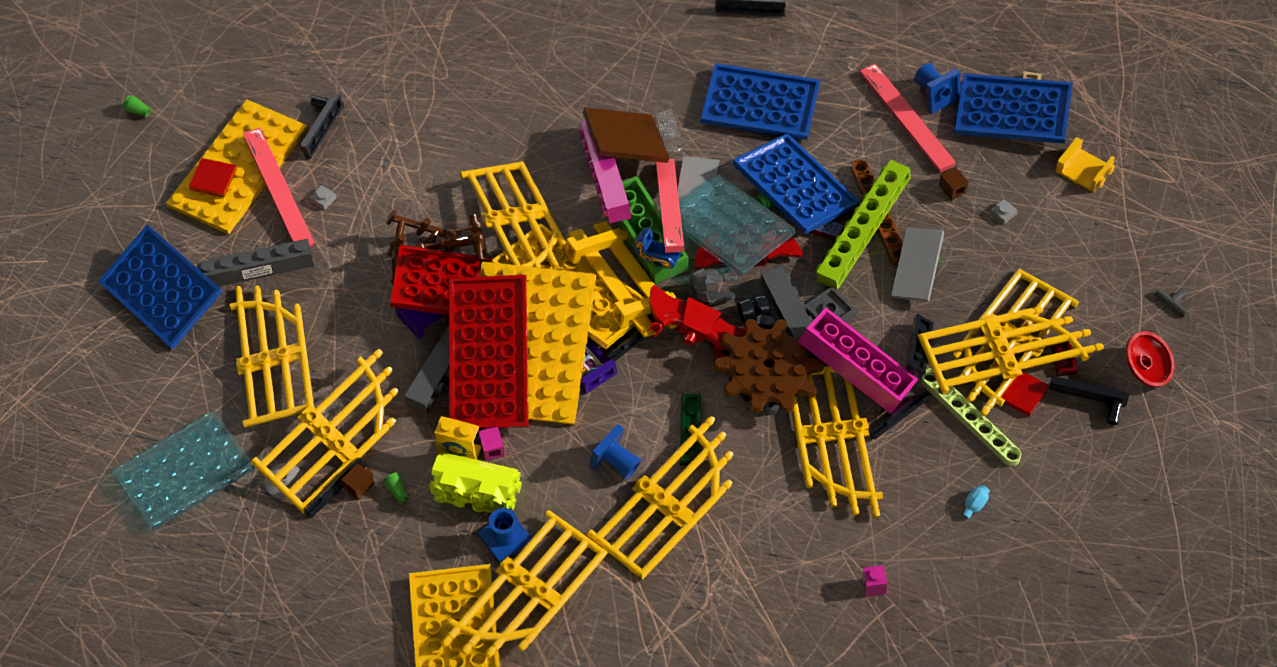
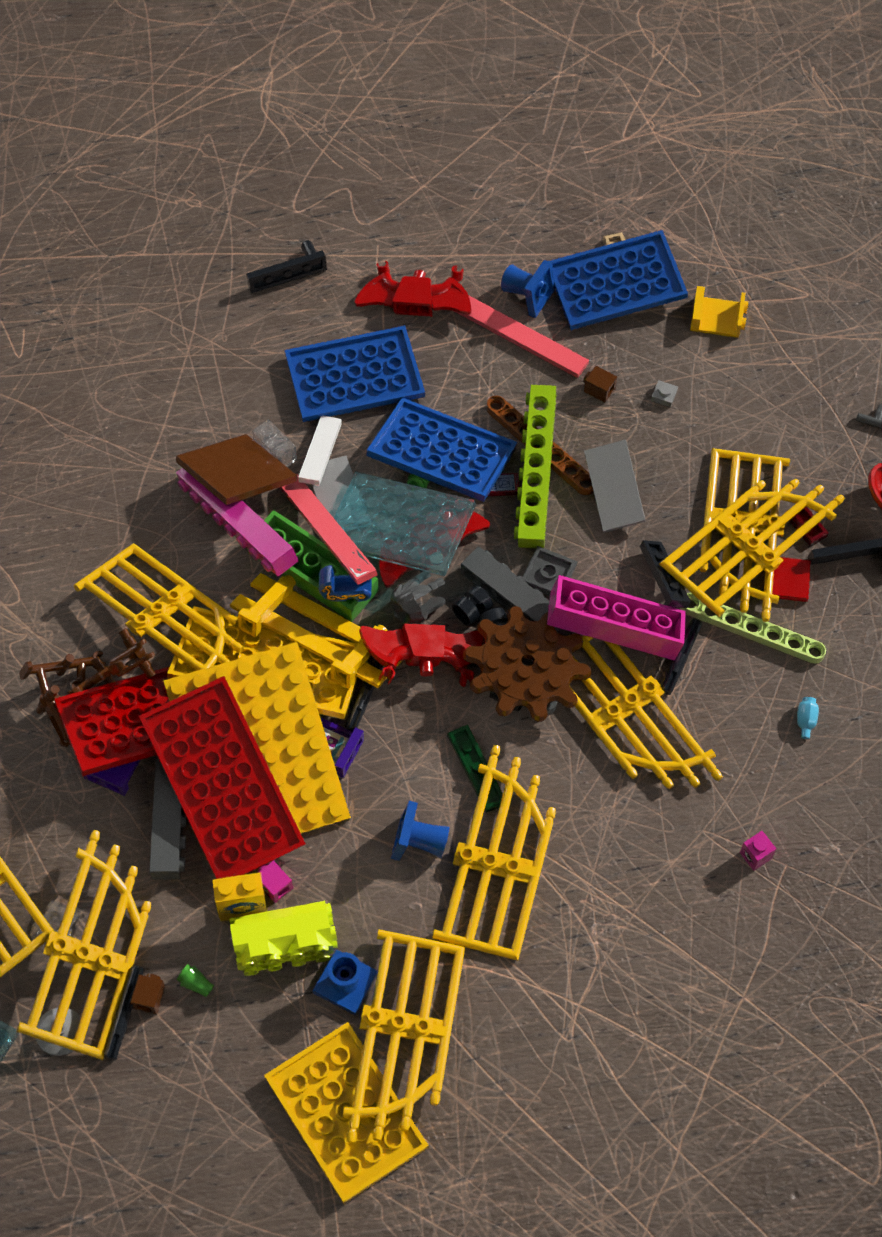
camera: 30 degrees left, 5 degrees up
(700, 148) = (320, 450): none -> white tile
(843, 59) = (416, 293): none -> red torso

